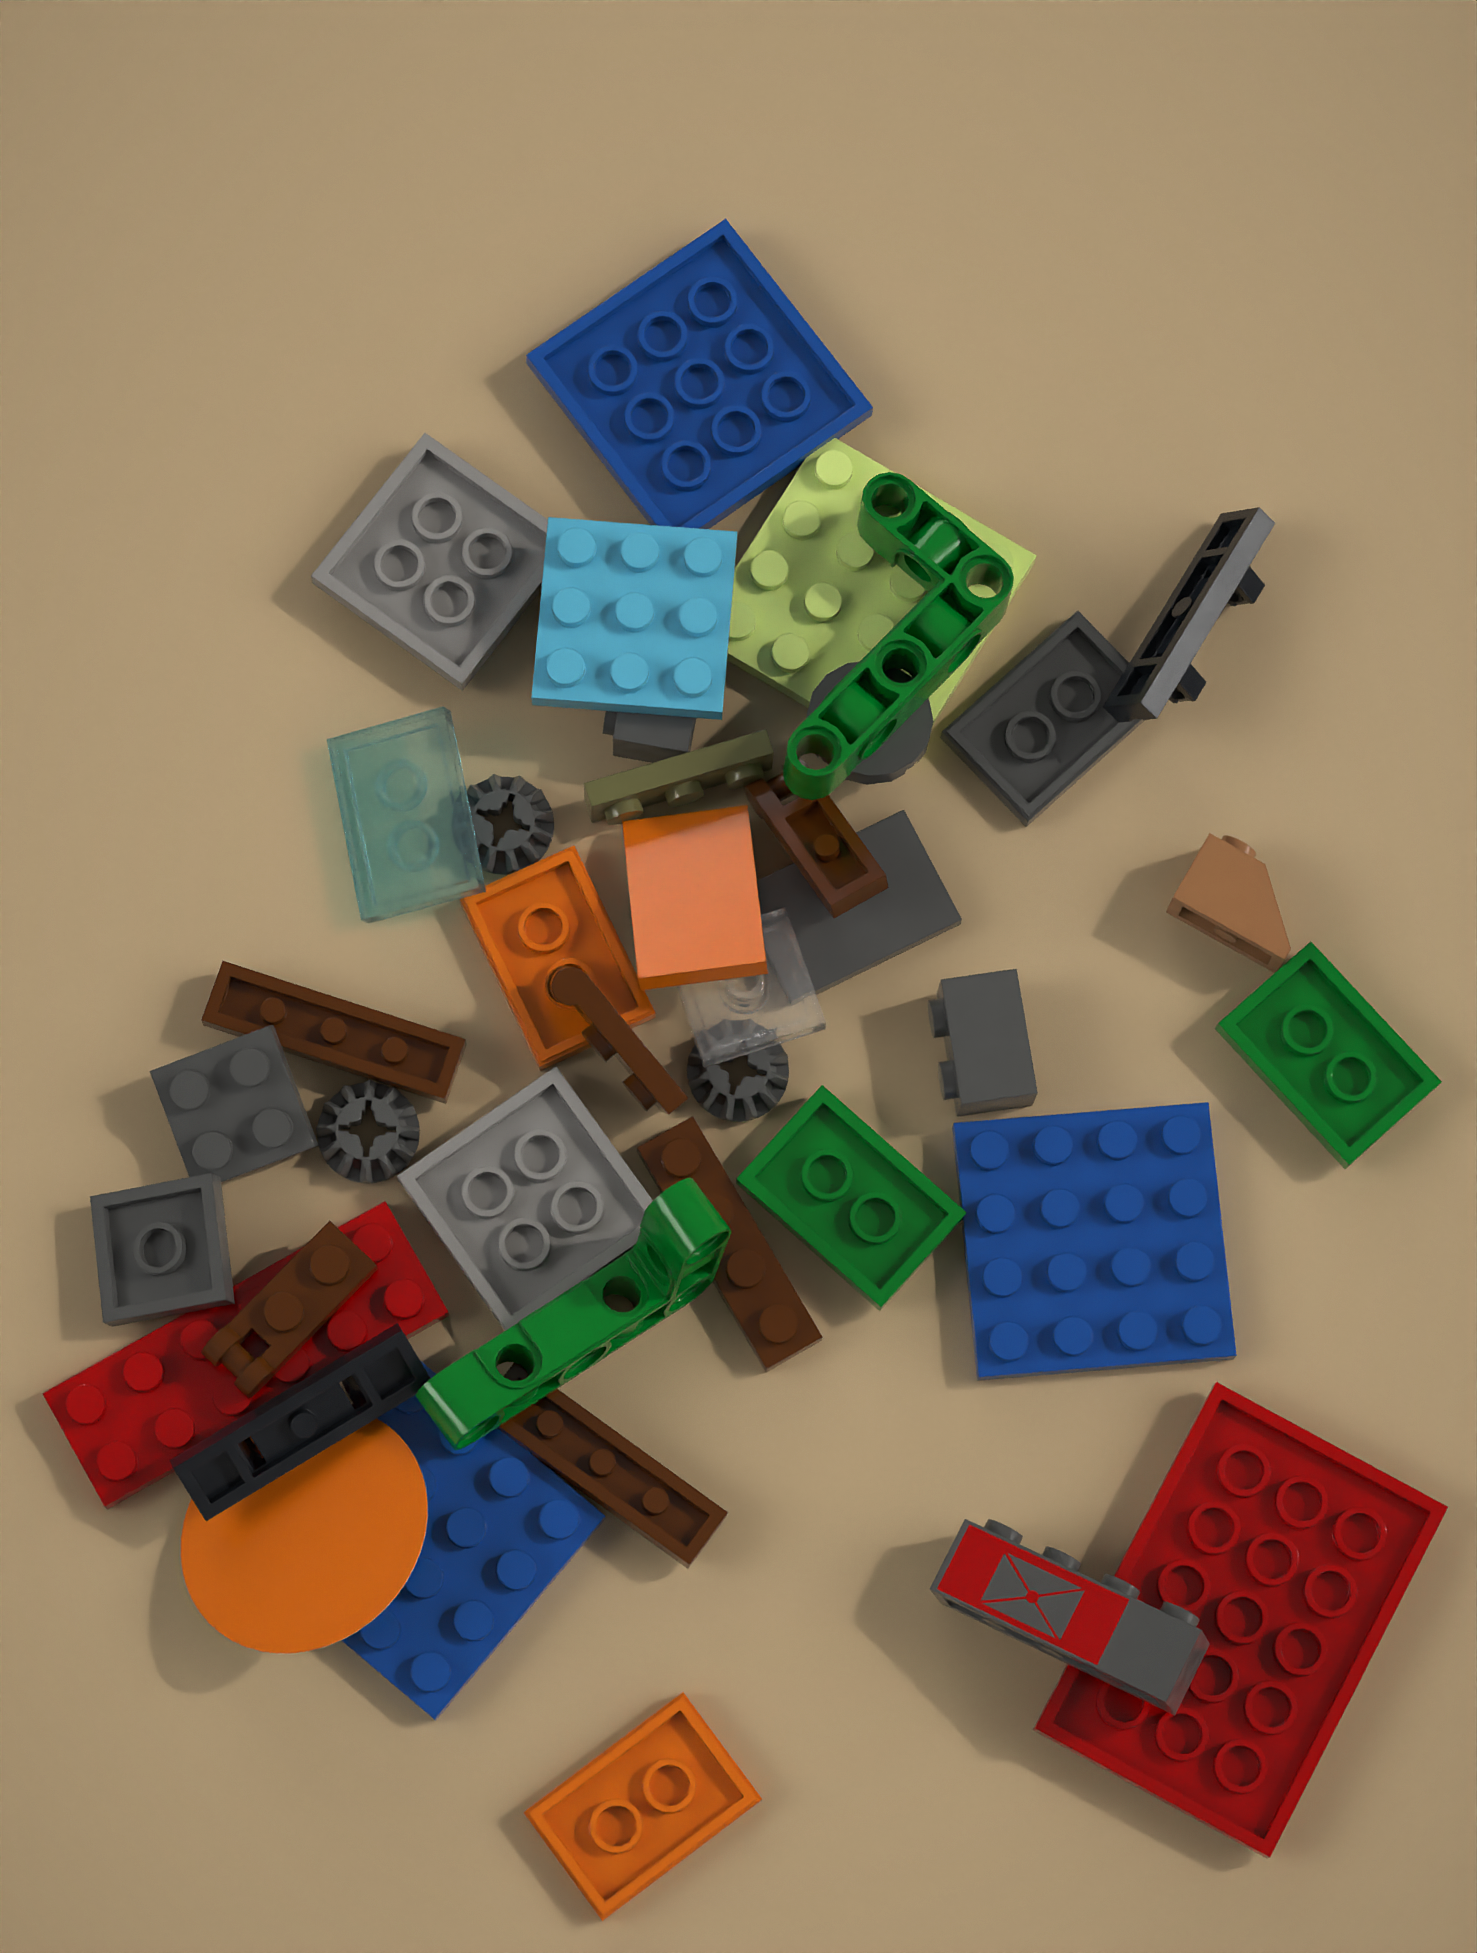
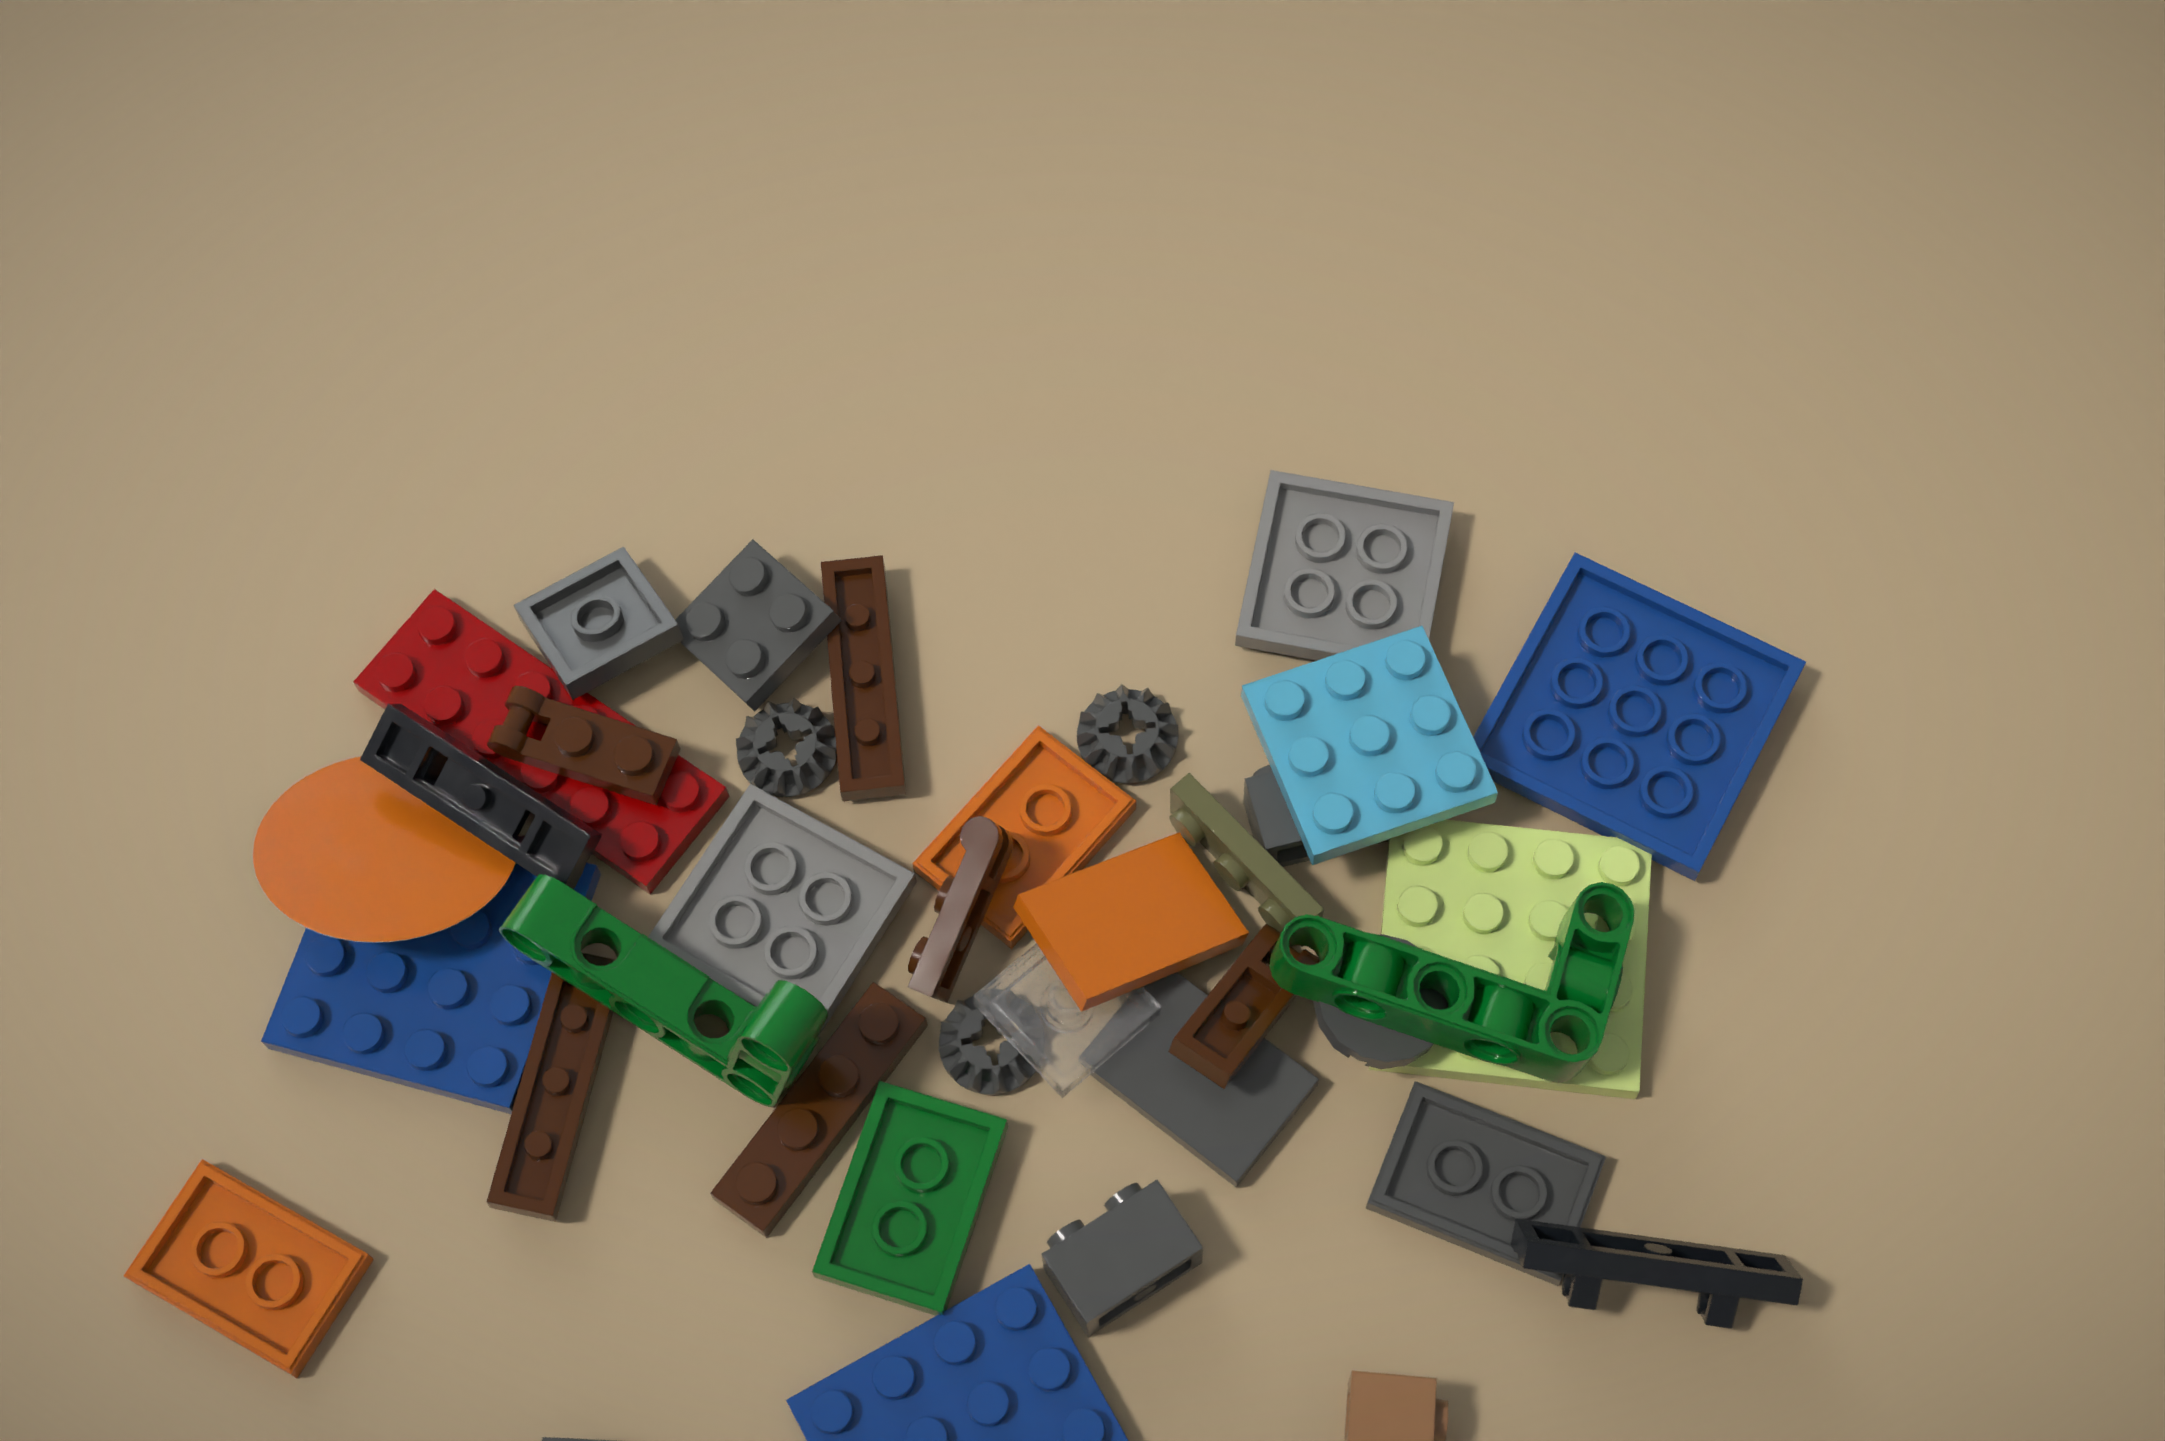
camera: 75 degrees right, 10 degrees down
(406, 815) = (1091, 645): clear light blue tile -> none

